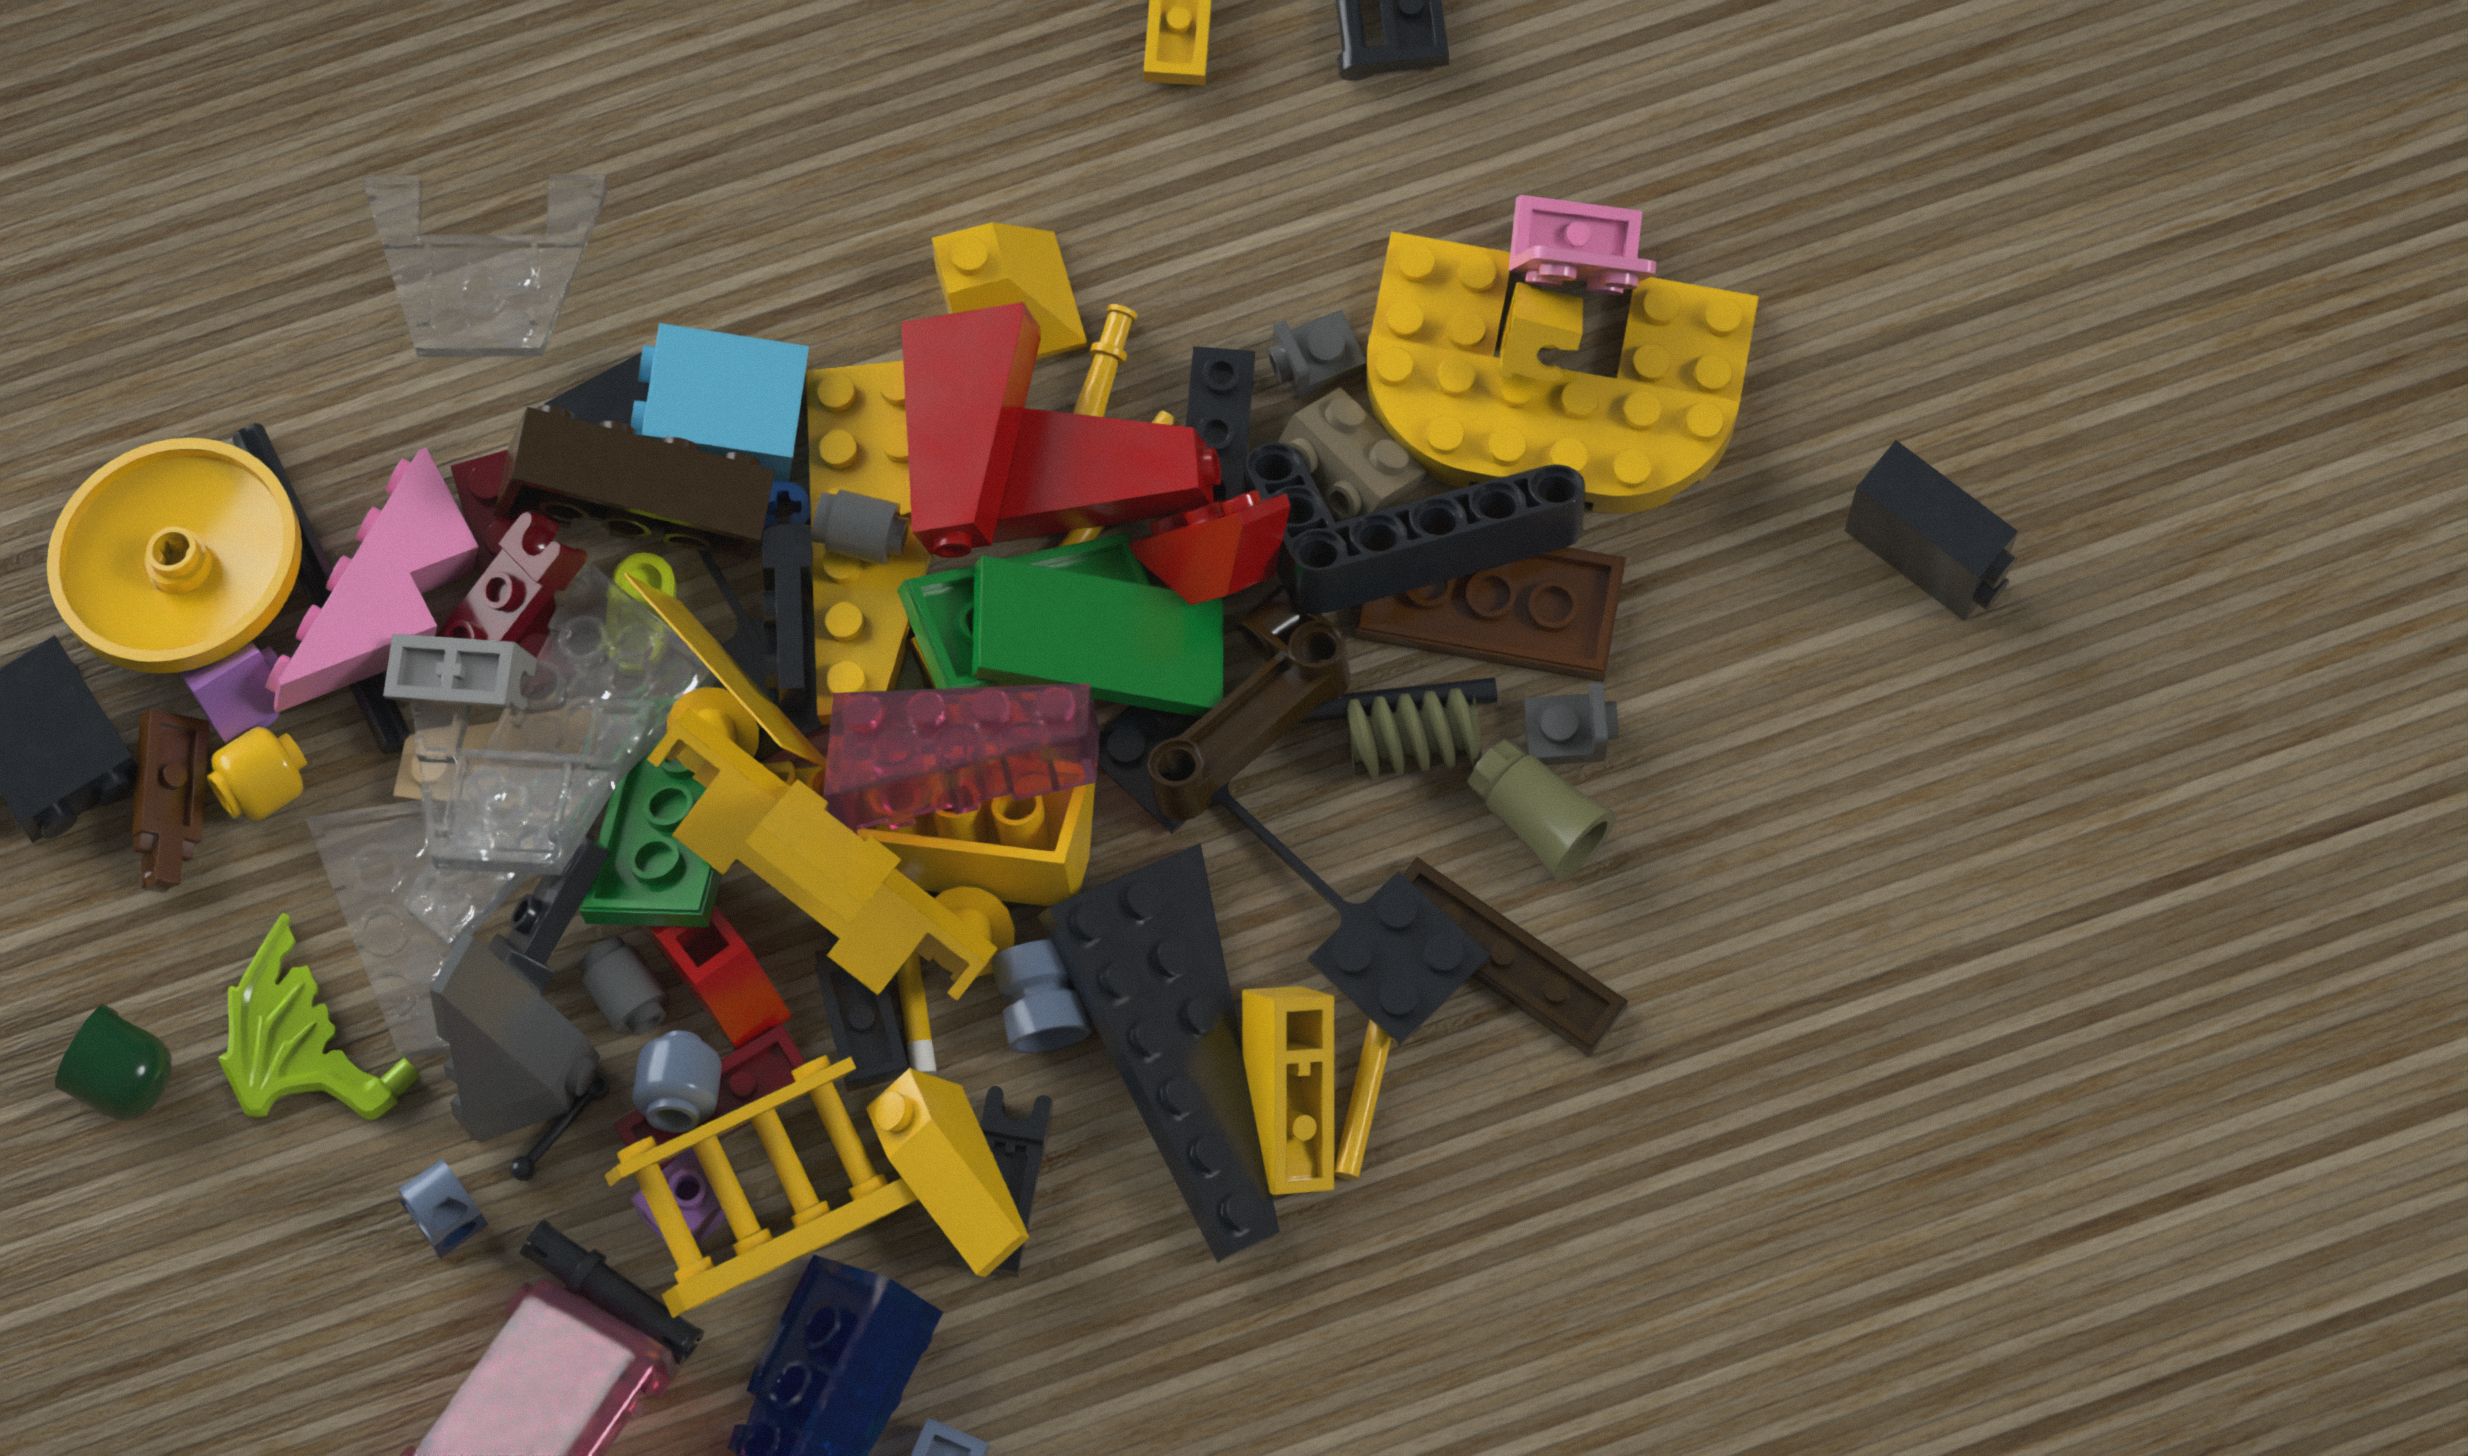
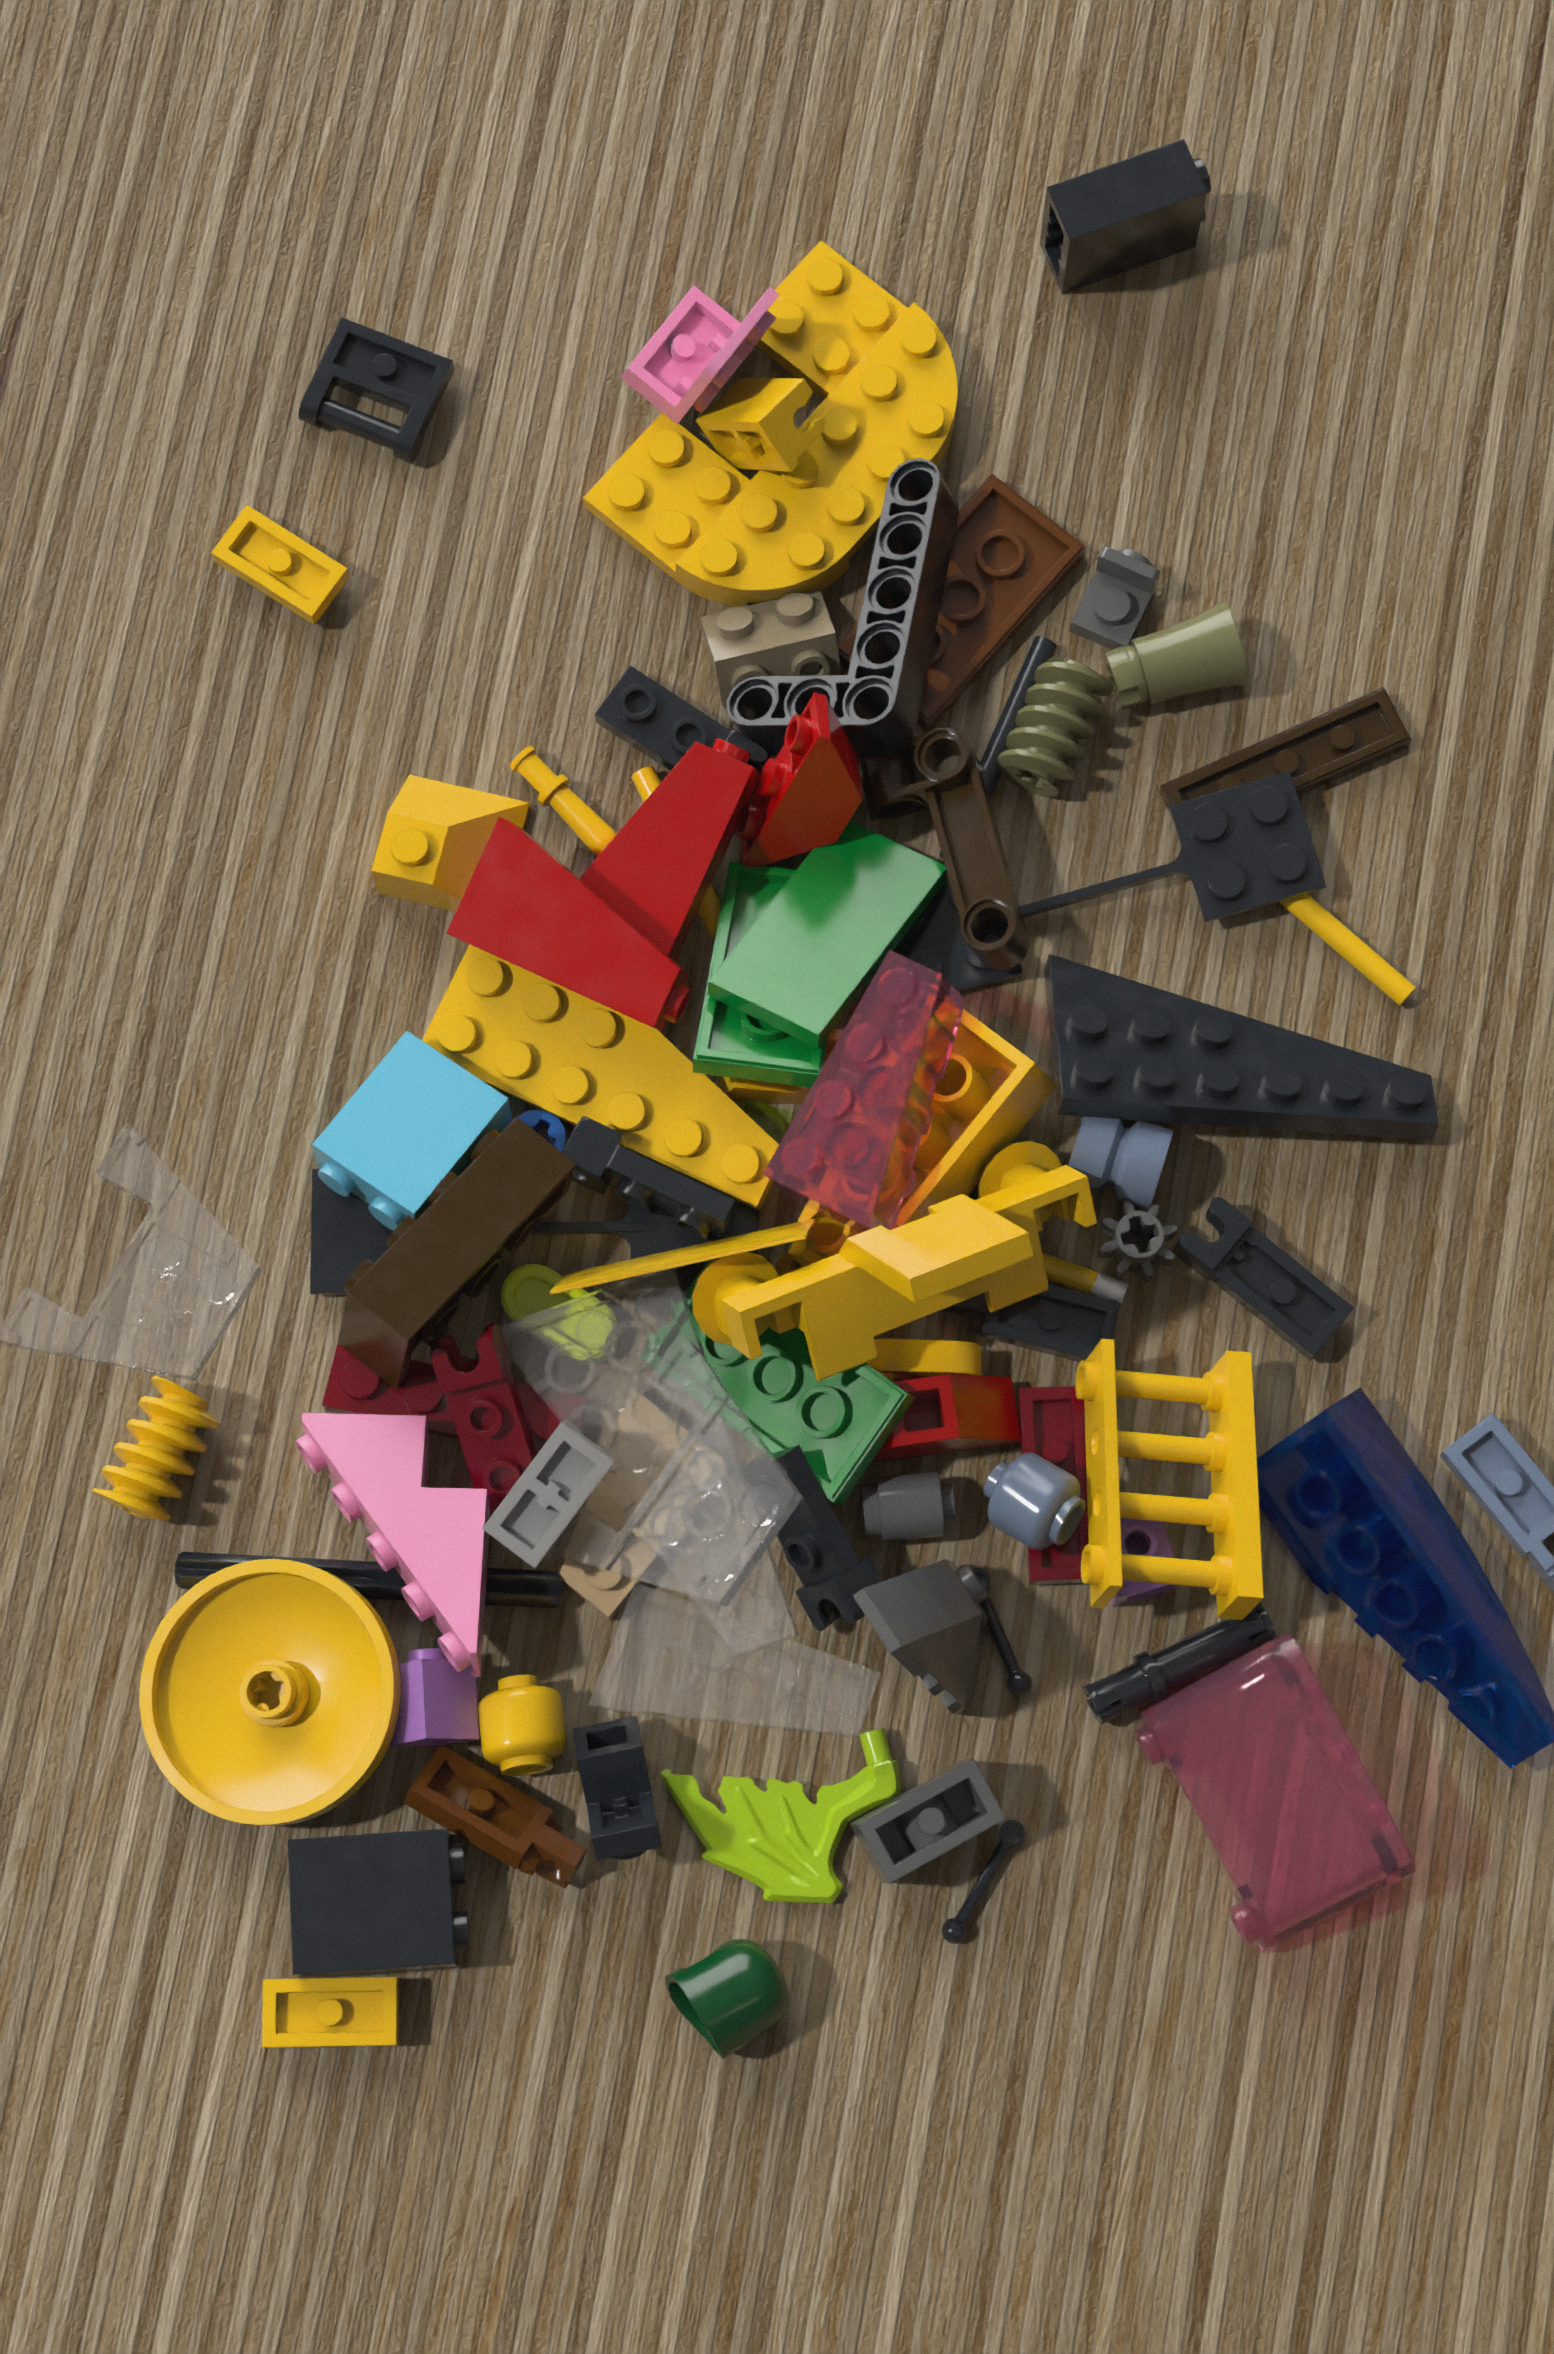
camera: 60 degrees left, 5 degrees up
(244, 881) = (617, 1789): none -> black brick
(333, 358) = (158, 1451): none -> yellow piece
(348, 1144) = (927, 1821): none -> dark grey brick
(385, 1232) = (1010, 1835): none -> black hinge
(441, 1208) = (1025, 1770): sand blue leg -> none
(762, 930) = (926, 1358): none -> yellow beam
(859, 526) = (610, 1073): dark grey brick -> none
(949, 1166) = (1241, 1311): yellow slope -> none
(975, 1038) = (1146, 1227): none -> dark grey gear
(1291, 1084) = (1307, 990): yellow slope -> none
(1315, 354) = (656, 620): dark grey bracket -> none

